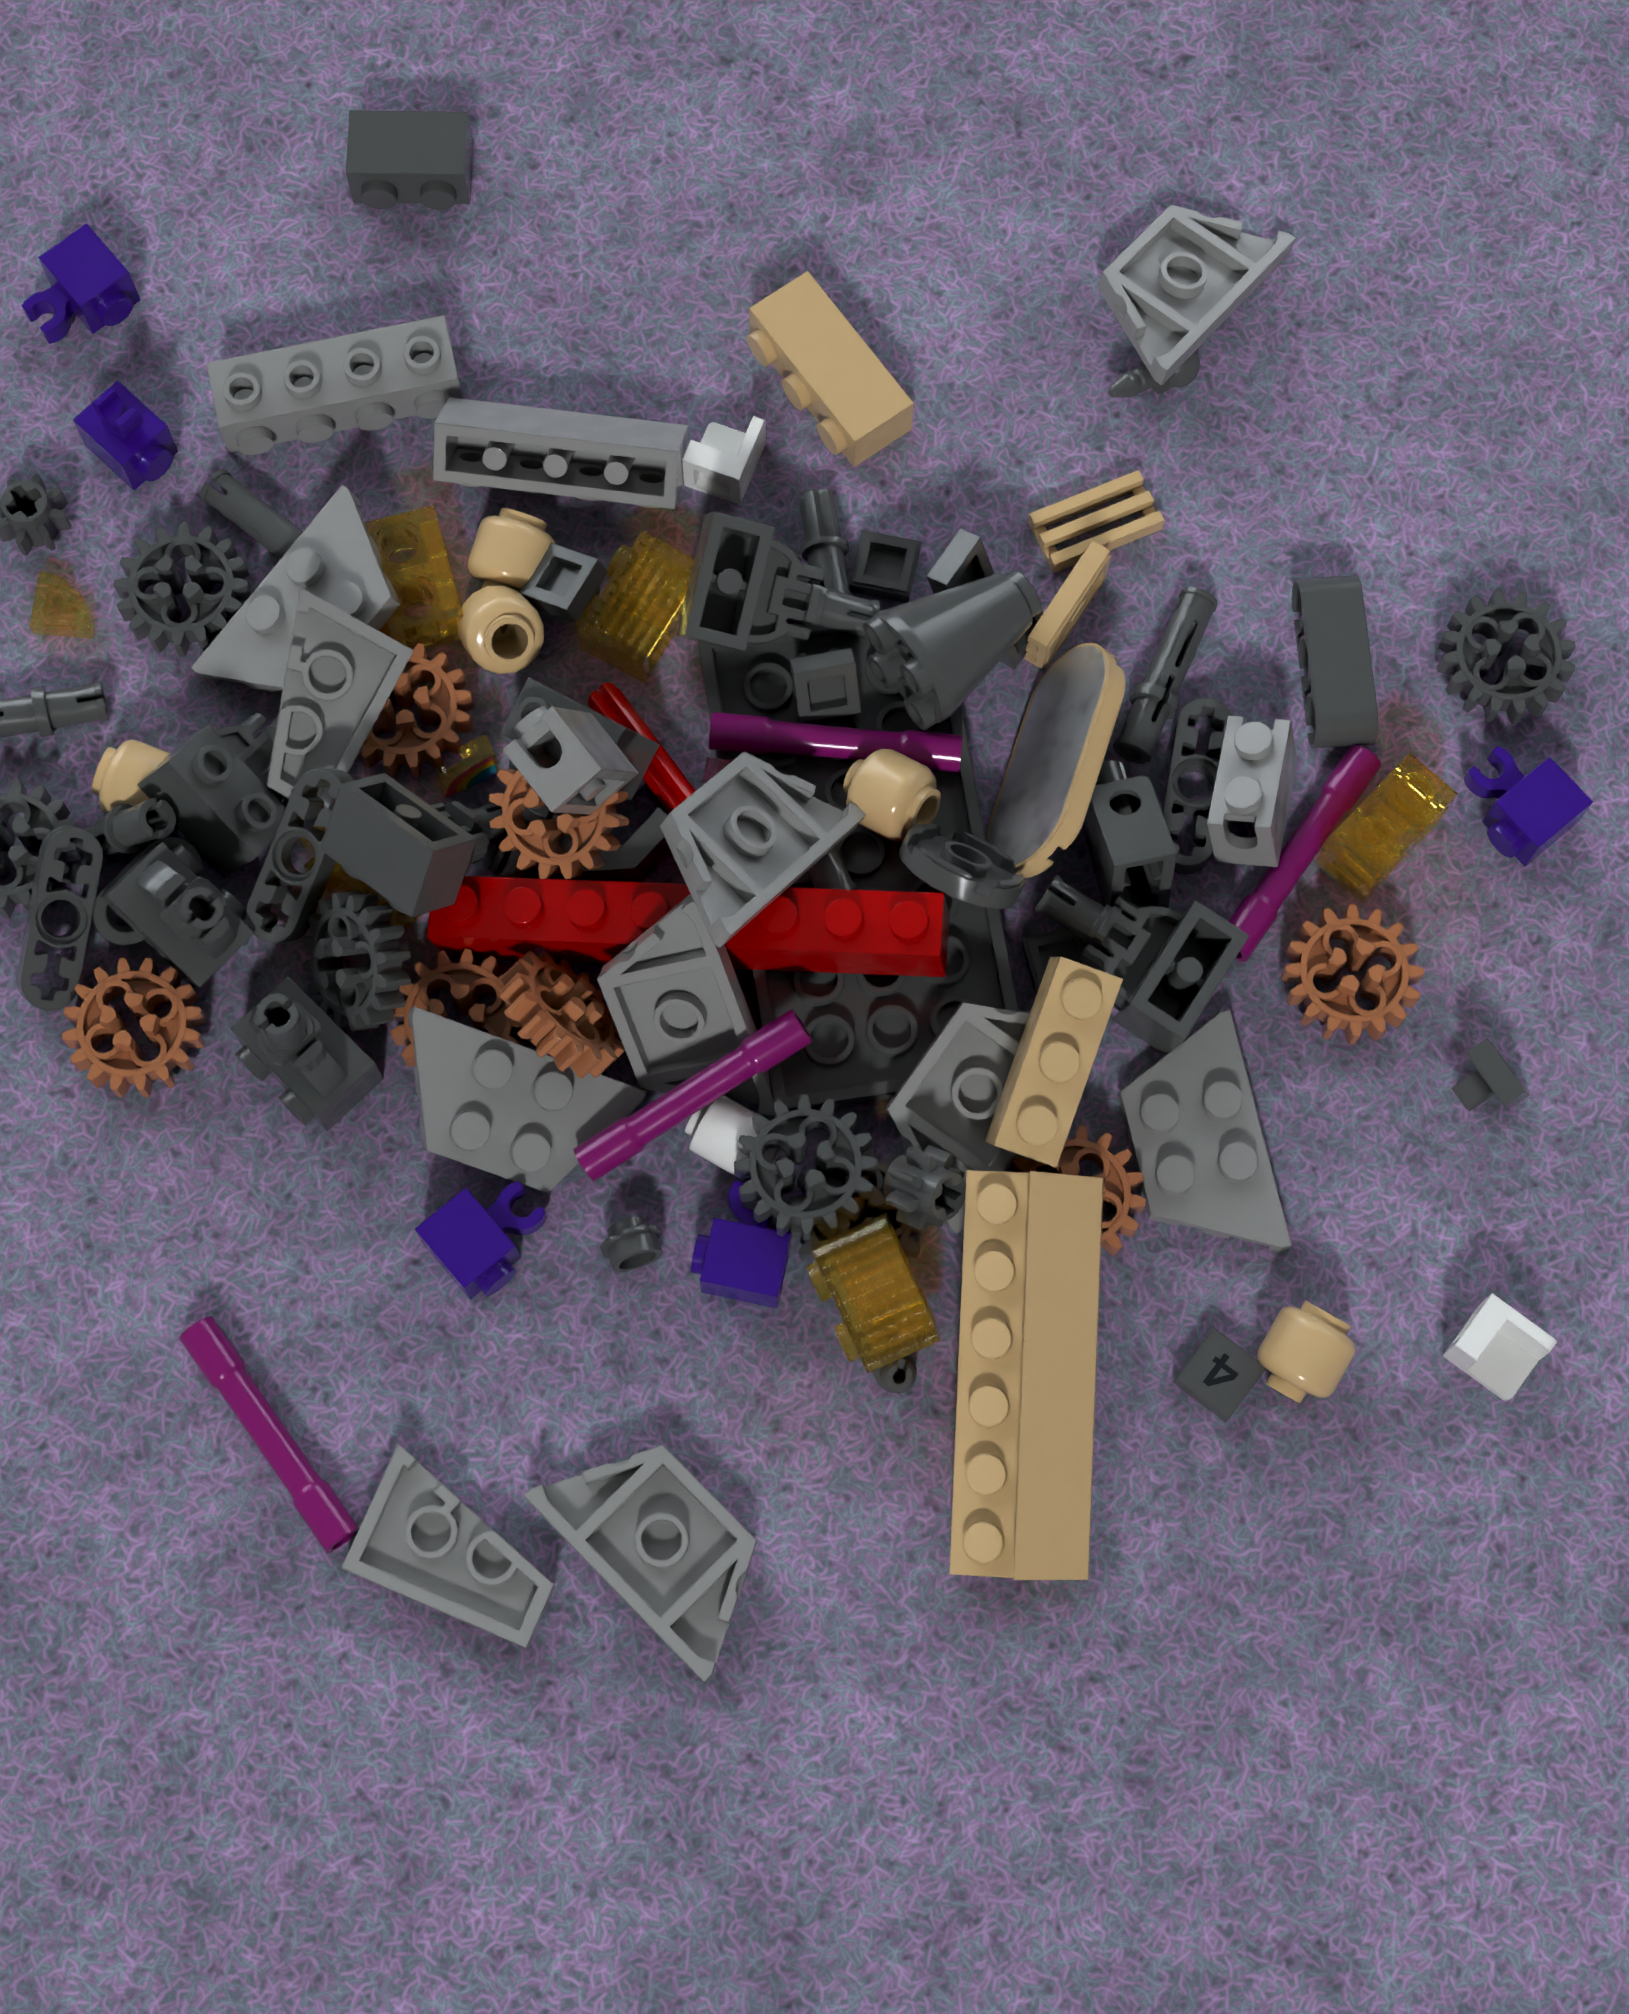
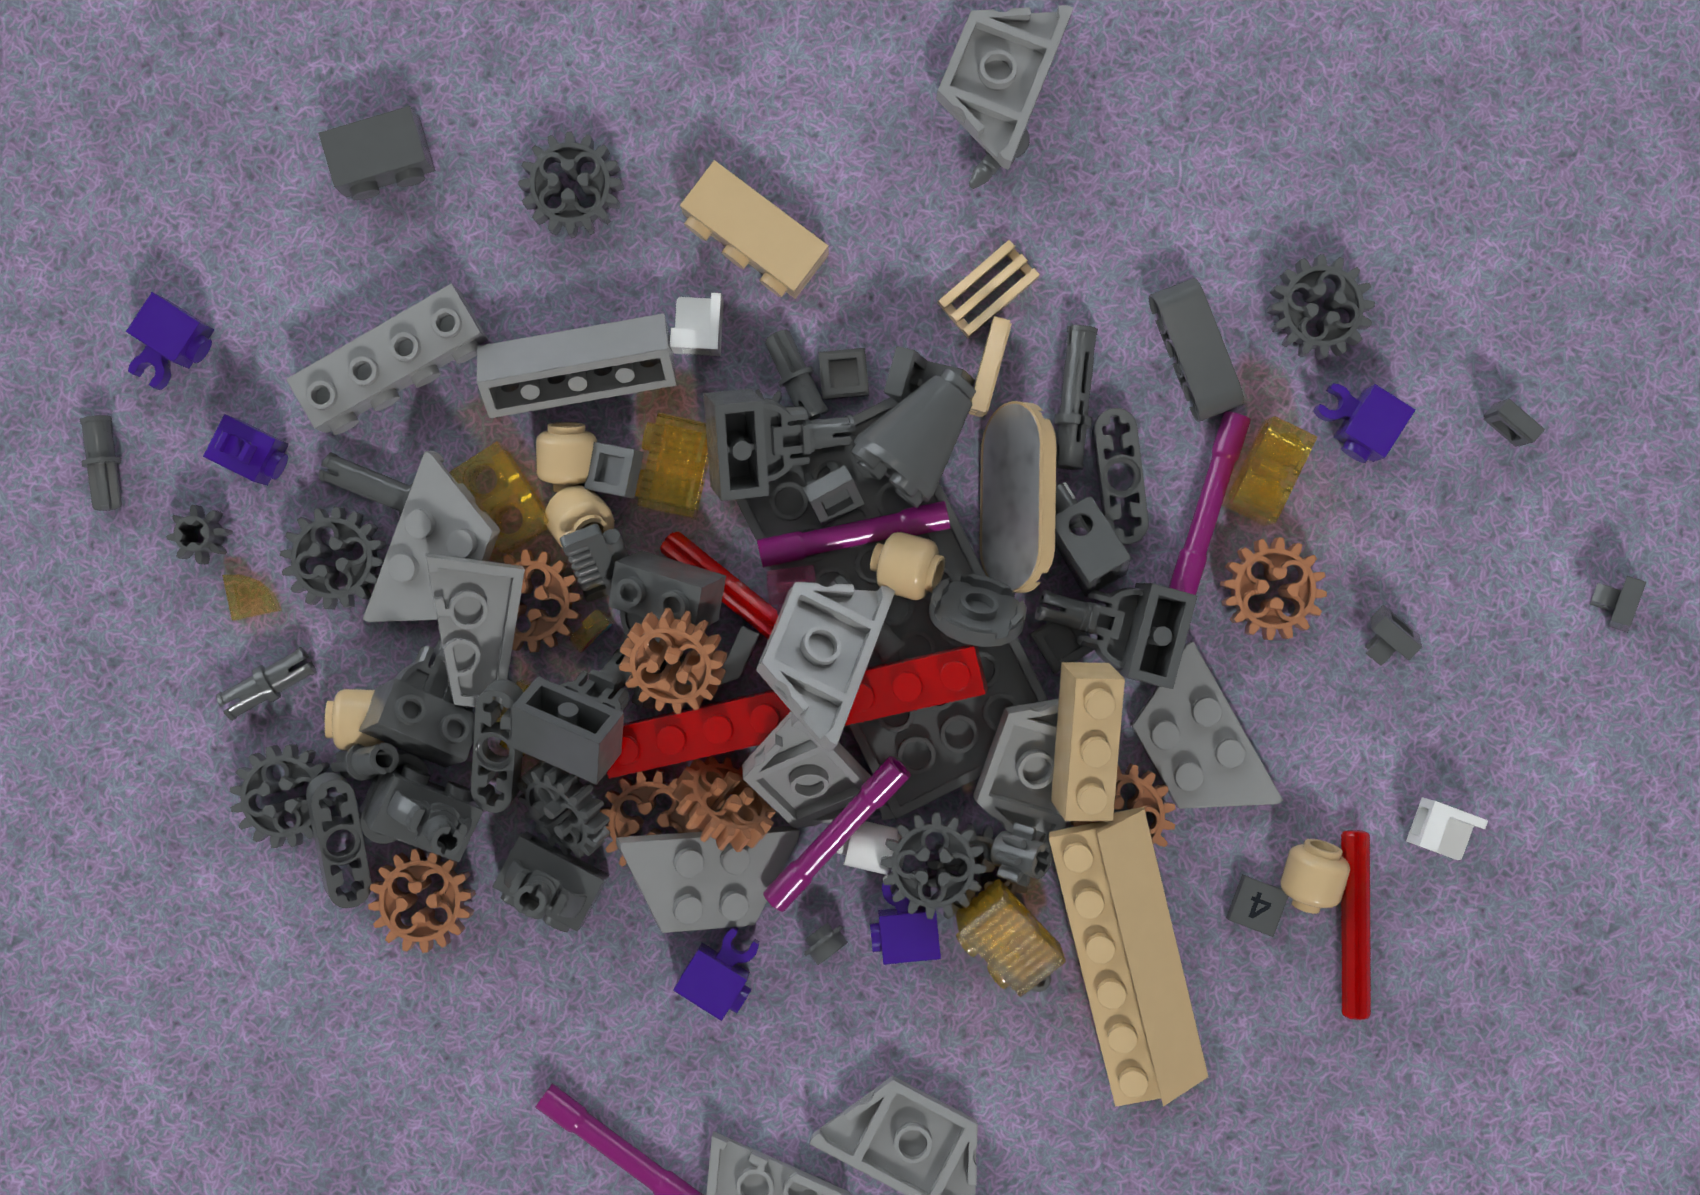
camera: 15 degrees left, 15 degrees up
(518, 663) = (594, 558): none -> dark grey piece
(568, 759) = (674, 647): light grey brick -> none
(657, 268) = (597, 184): none -> dark grey gear
(1252, 786) = (1166, 477): light grey brick -> none
(1344, 1442) = (1356, 927): none -> red axle

